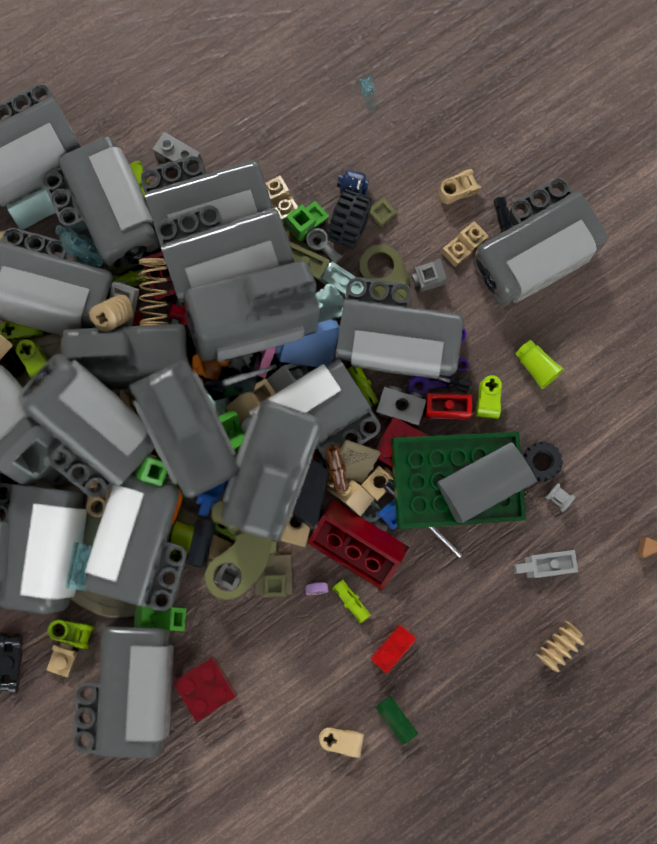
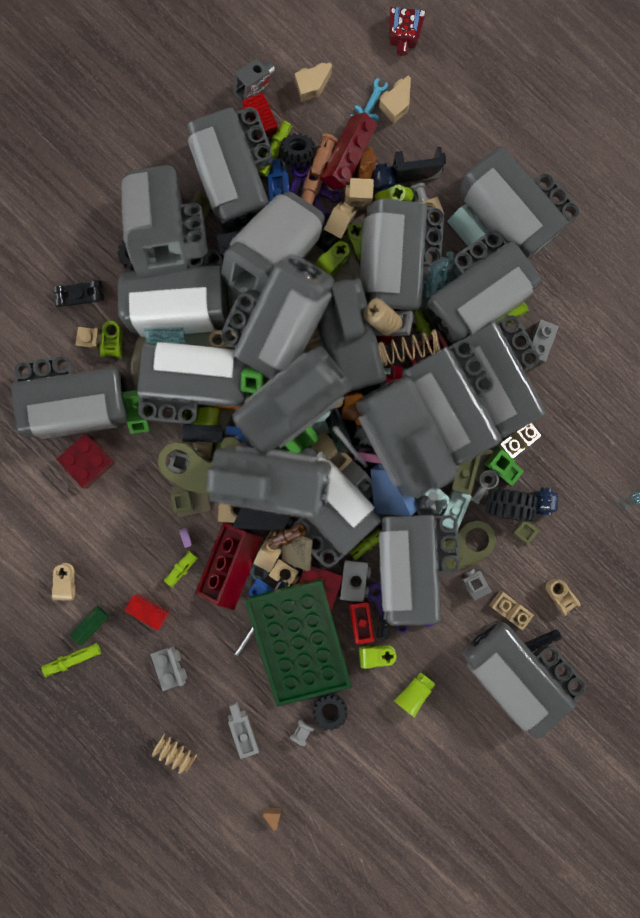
camera: 75 degrees right, 5 degrees up
(332, 309) = (426, 504): none -> light grey bar
(431, 743) = (65, 662): none -> lime pin
(462, 636) = (168, 668): none -> light grey bracket
(486, 482) = (300, 667): dark grey slope -> none

